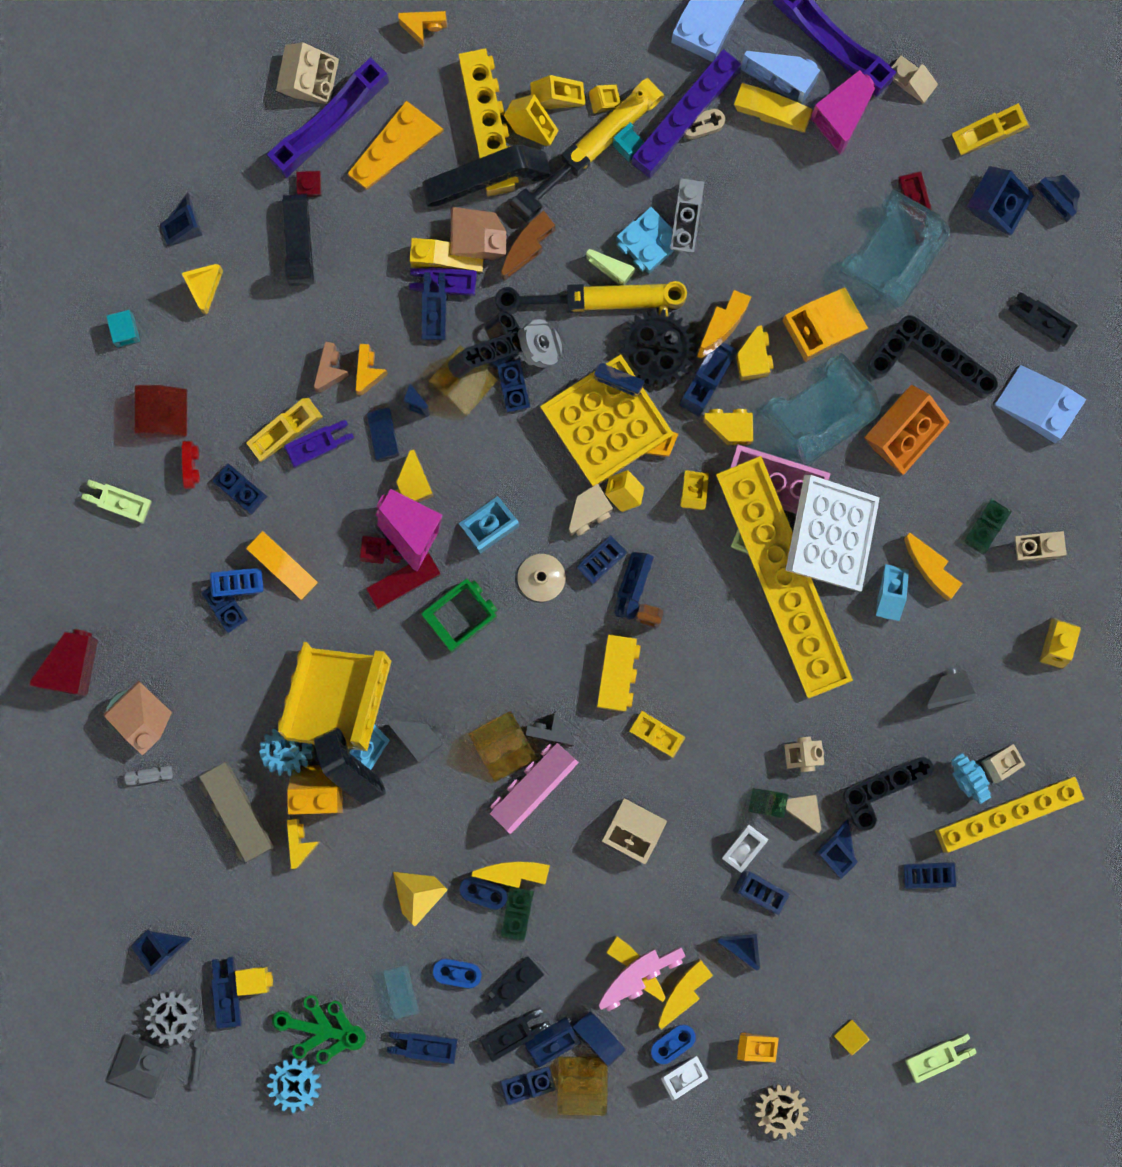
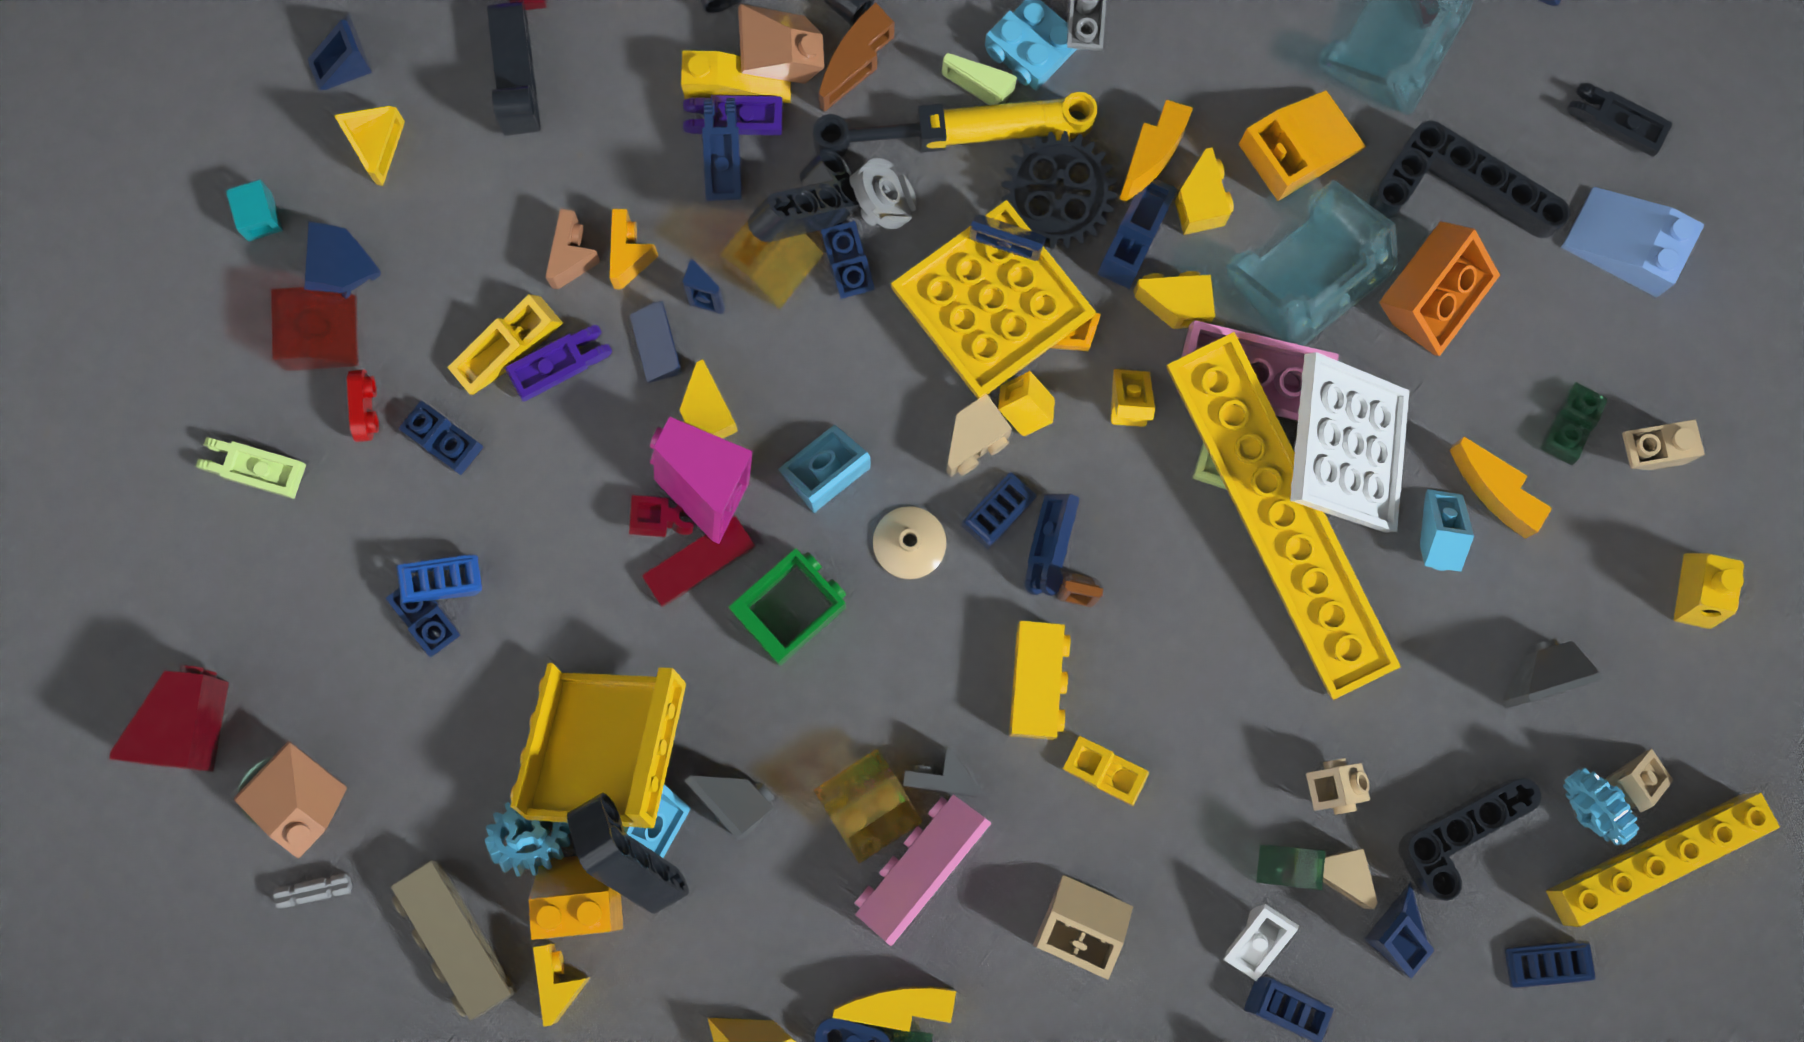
camera: 10 degrees left, 5 degrees down
(176, 367) = (336, 260): none -> dark blue slope
(282, 565) = (509, 547): light orange slope -> none

